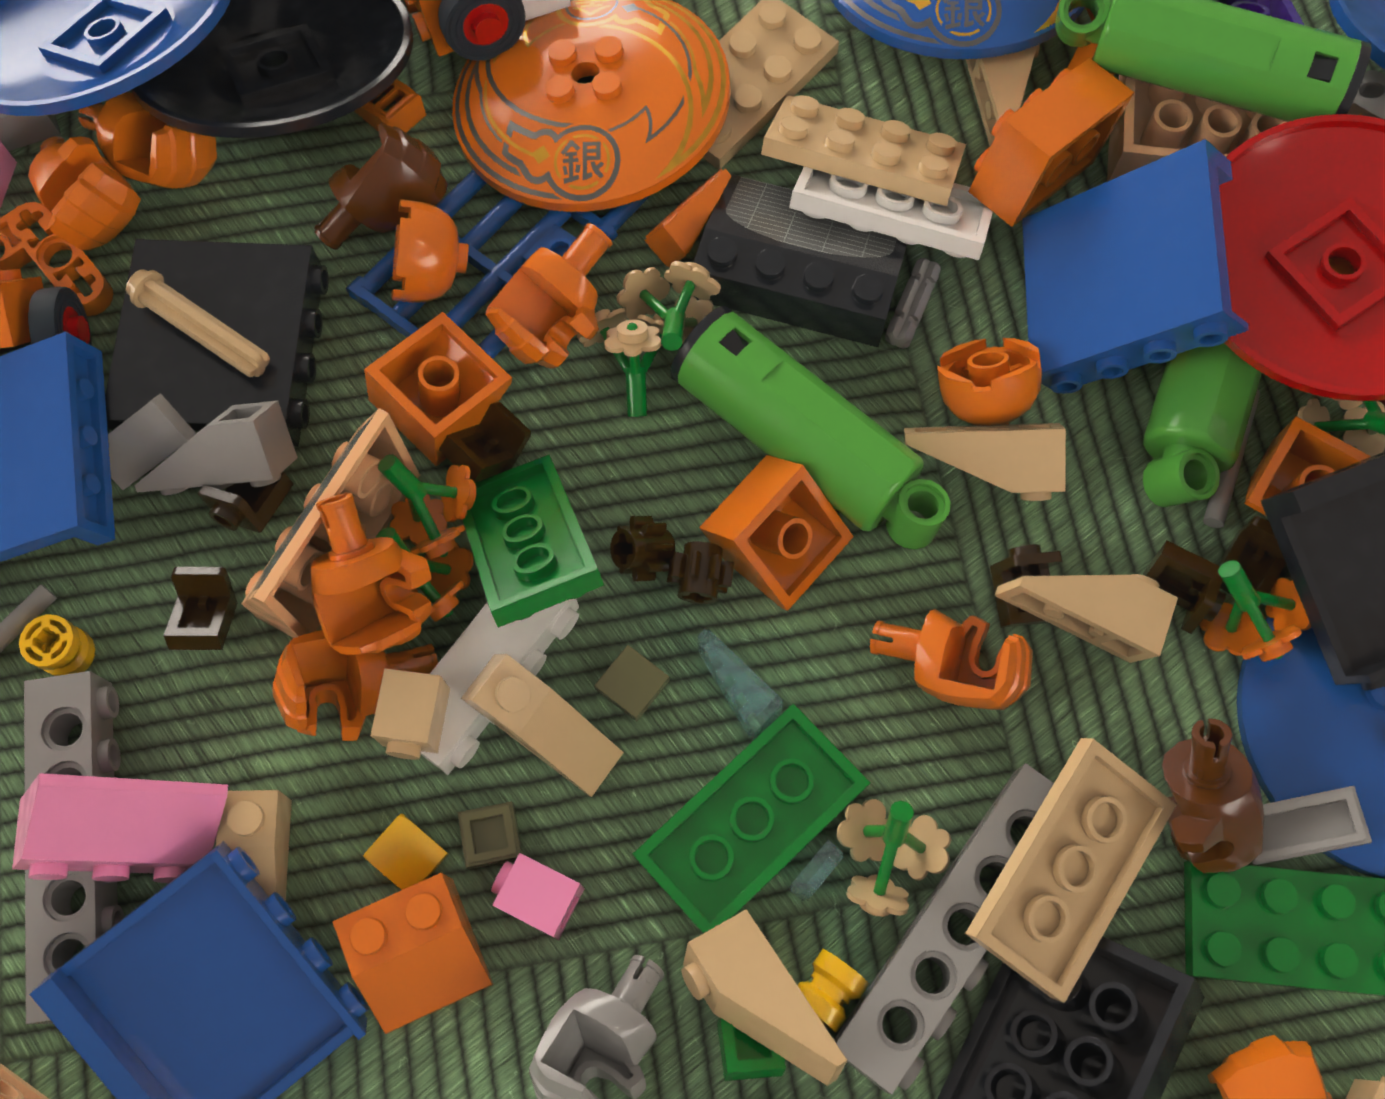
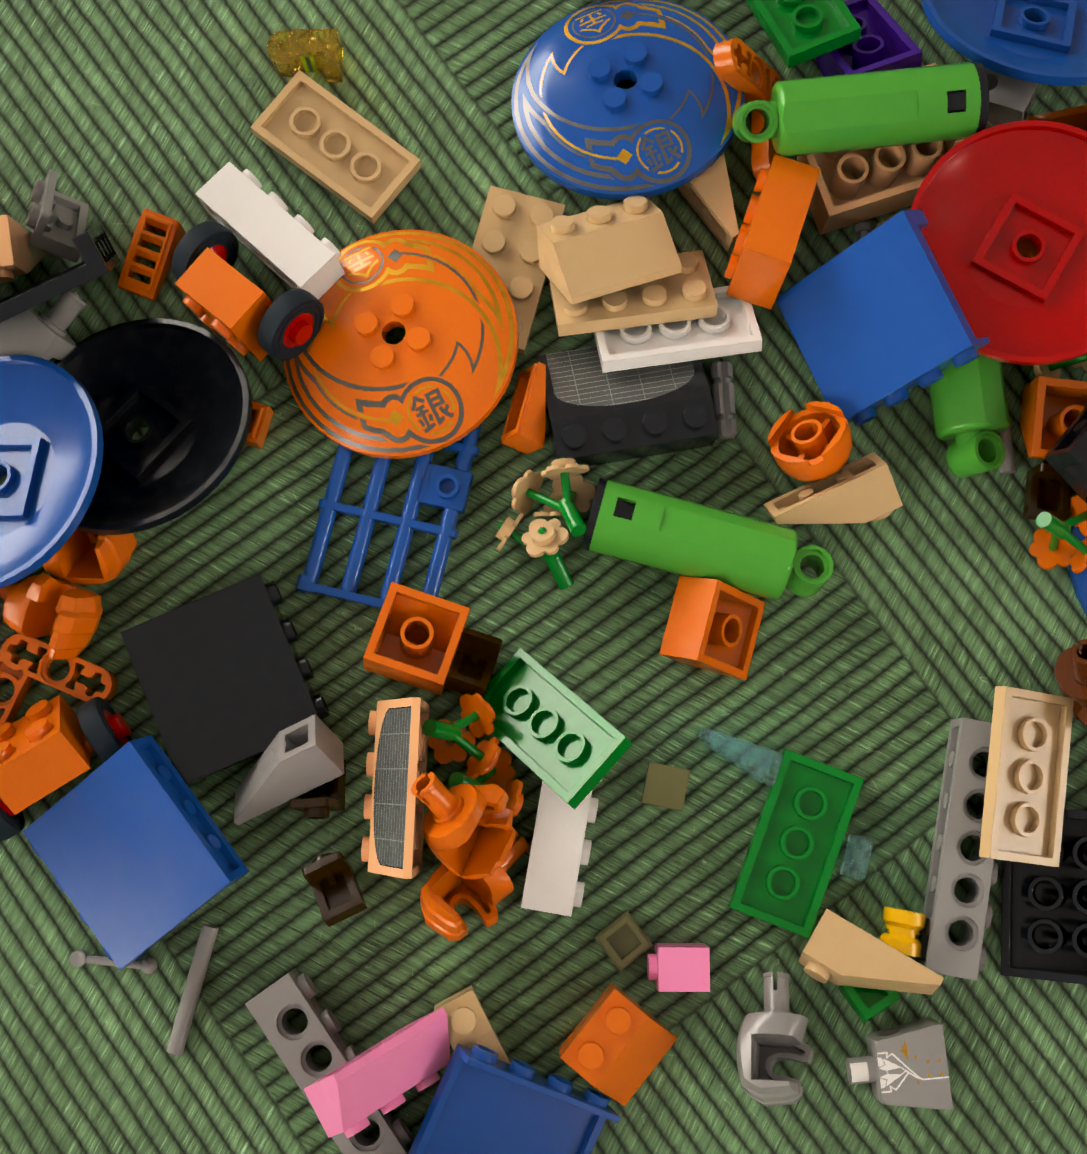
camera: 30 degrees left, 10 degrees up
(68, 654) = (254, 961): yellow wheel -> none
(146, 440) = (226, 784): light grey tile -> none
(150, 291) = (213, 680): tan axle -> none
(372, 194) = (299, 505): reddish brown piece -> none
(405, 853) = (575, 983): yellow slope -> none
(410, 713) = (538, 894): tan brick -> none
(426, 253) = (351, 541): orange cylinder -> none
(542, 722) = (623, 851): tan slope -> none
(550, 301) = (467, 536): orange piece -> none
(642, 548) = (626, 688): dark brown gear -> none
(700, 572) = (675, 686): dark brown gear -> none
(858, 83) = (607, 249): none -> tan slope
(894, 843) = (911, 806): tan plant -> none
(949, 656) = (879, 669): orange piece -> none
(1022, 561) = (904, 587): dark brown bracket -> none
(1110, 611) = (971, 577): tan slope -> none
(1191, 580) = (1011, 528): dark brown bracket -> none

